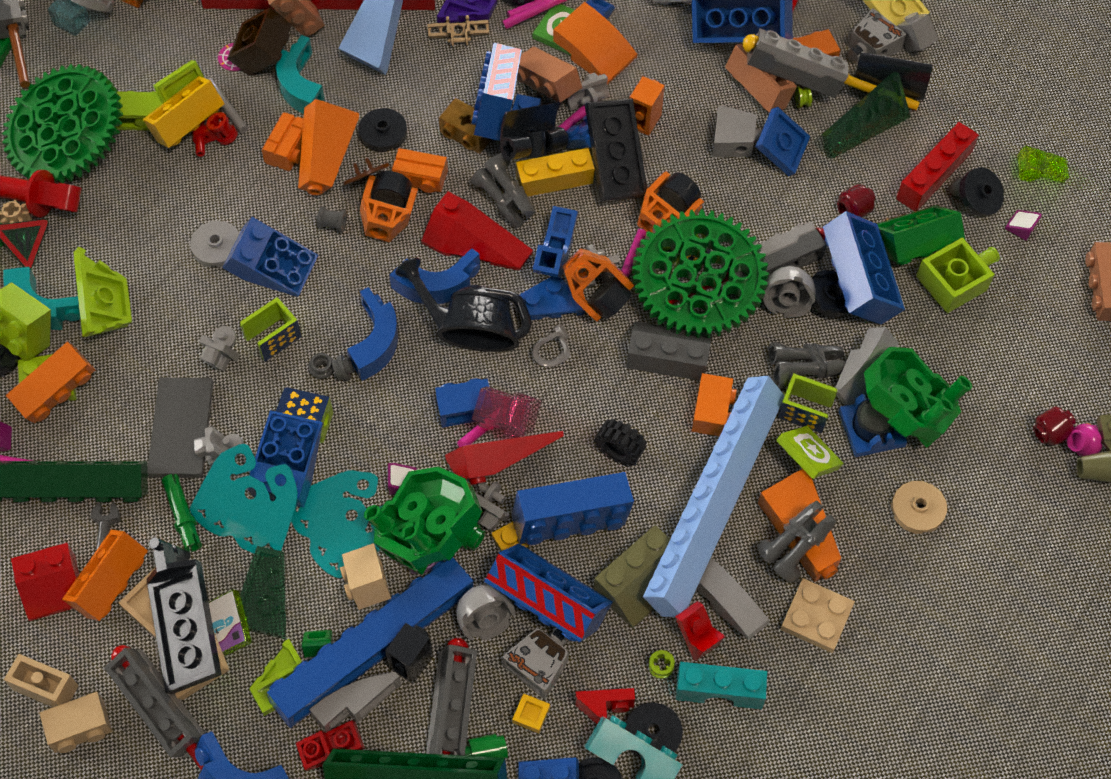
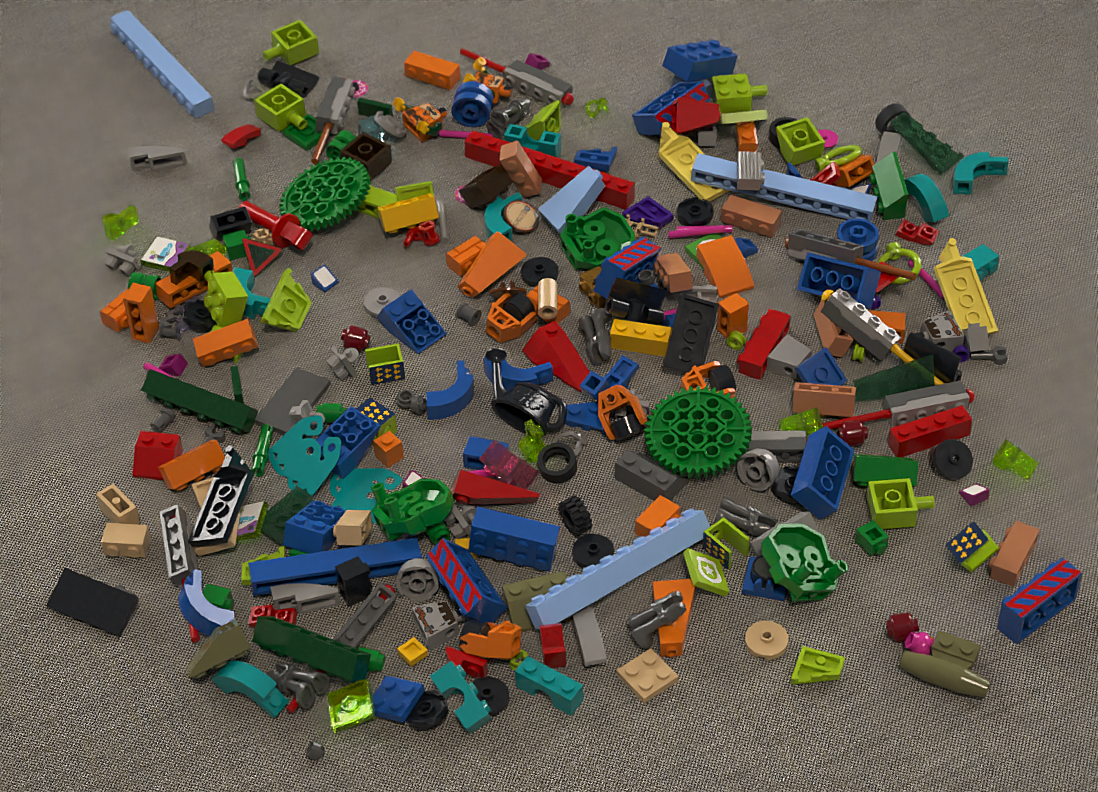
camera: 30 degrees right, 15 degrees down
(26, 524) = (162, 421): none -> dark grey pin
(44, 49) = (340, 141): none -> green wheel
(84, 46) = (370, 151): none -> dark brown brick
(98, 436) = (236, 384): none -> dark green tile
(123, 240) = (323, 278): none -> slope
(213, 308) = (355, 338): none -> dark red head
(241, 423) = (331, 411): none -> green brick
(248, 754) = (219, 596): none -> green brick
(312, 594) = (312, 527): none -> blue slope
(321, 65) = (521, 216): none -> piece
(342, 445) = (388, 449): none -> orange brick
(423, 76) = (589, 247): none -> green brick
(424, 165) = (547, 298): none -> tan brick
(514, 364) = (533, 442): none -> clear neon green plate
(526, 88) = (642, 276): none -> dark grey hinge
(563, 360) = (552, 450): none -> black tyre
(643, 655) = (491, 639): none -> orange piece
(661, 490) = (590, 549): none -> black plate
(665, 130) = (736, 336): none -> lime bush
(695, 126) = (765, 338): none -> red brick
(797, 210) = (806, 421): none -> clear neon green plate
(805, 172) = (827, 398): none -> nougat brick
(902, 140) = (916, 404): none -> piece
(908, 53) = (961, 351): none -> dark purple hinge
(941, 44) = (998, 355): none -> dark grey bar
(958, 327) = (872, 538): none -> green brick
(994, 517) = (817, 666): none -> lime wing
(1072, 294) = (972, 546): none -> piece

